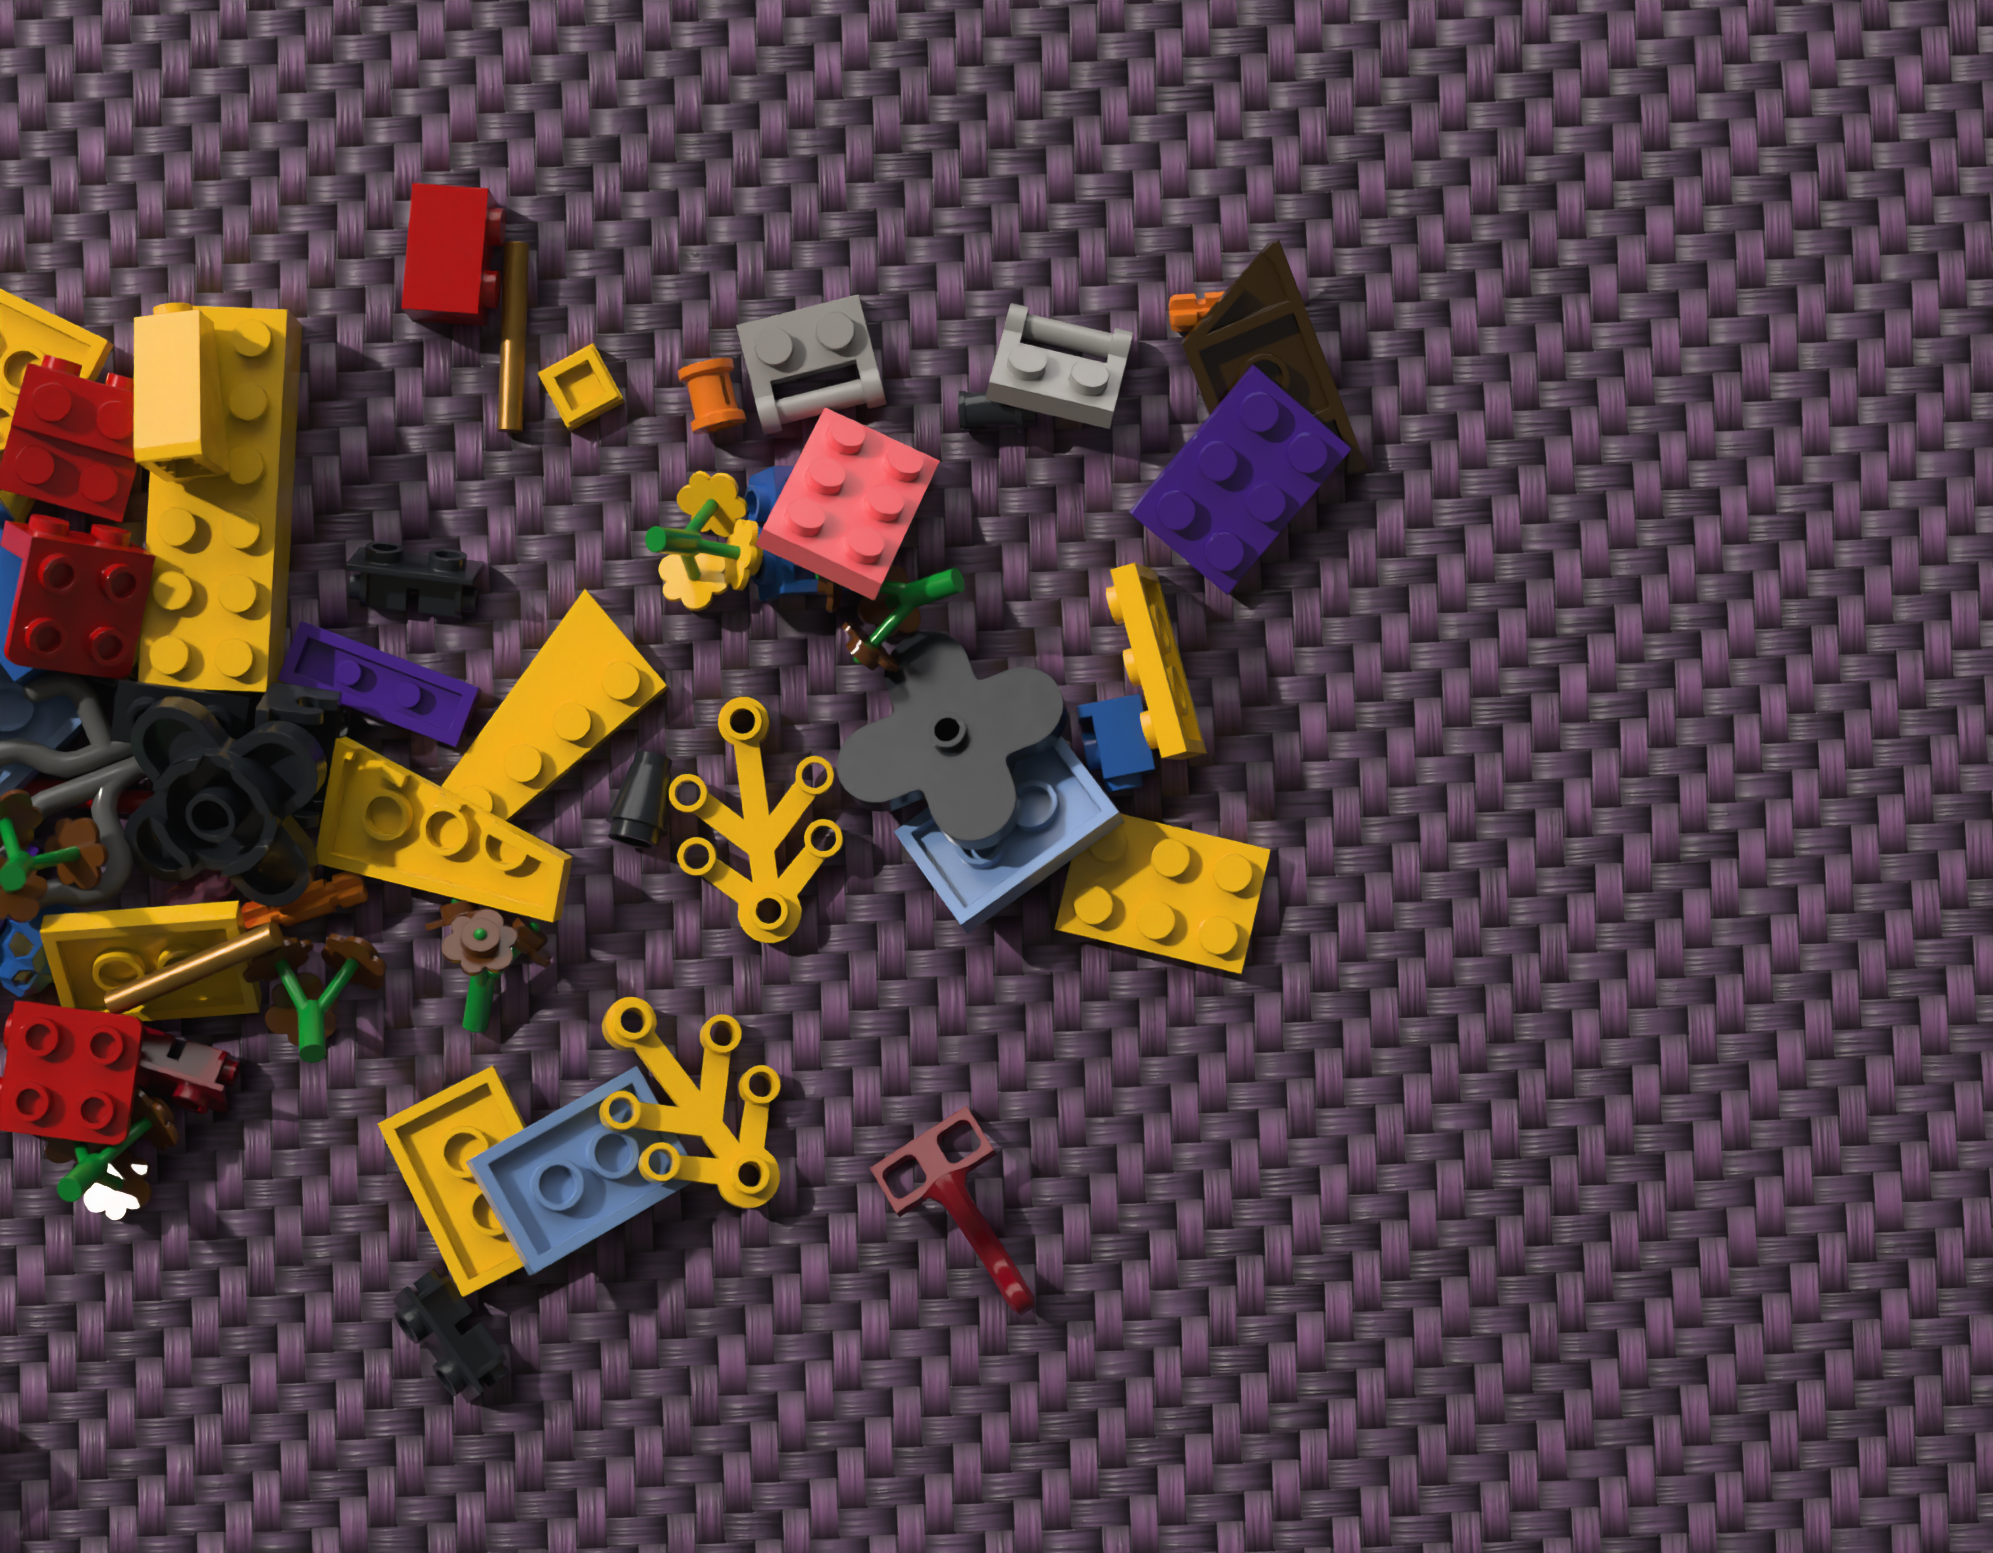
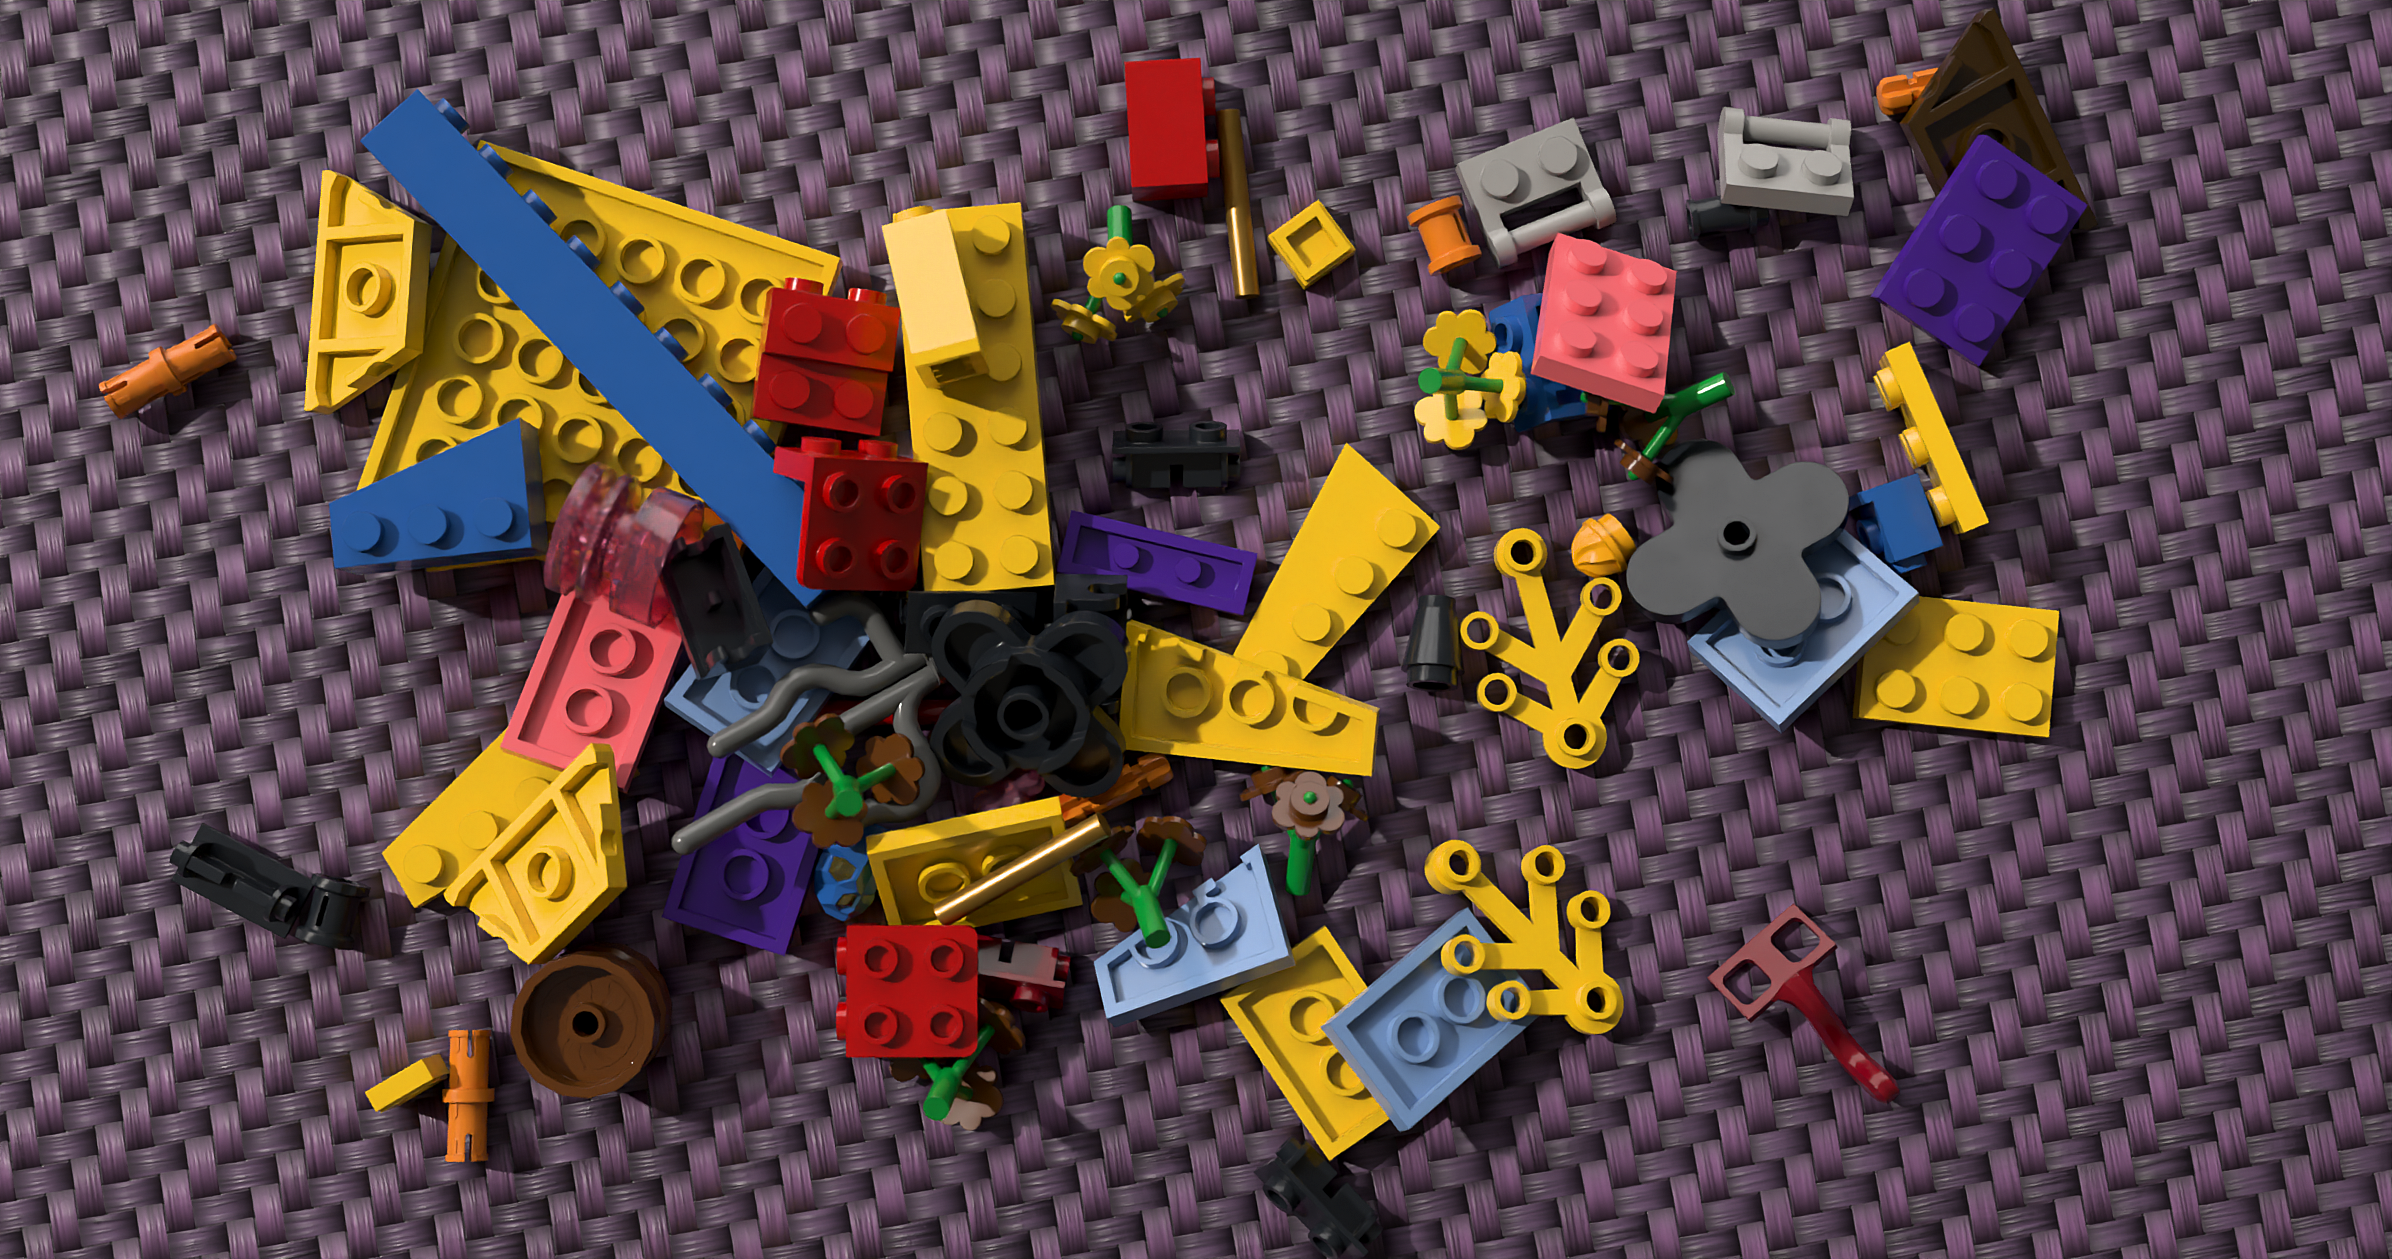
camera: 15 degrees left, 0 degrees up
(374, 394) = (1125, 280): none -> yellow plant
(374, 1070) = (1216, 942): none -> medium blue wing
(821, 727) = (1602, 547): none -> light orange plate

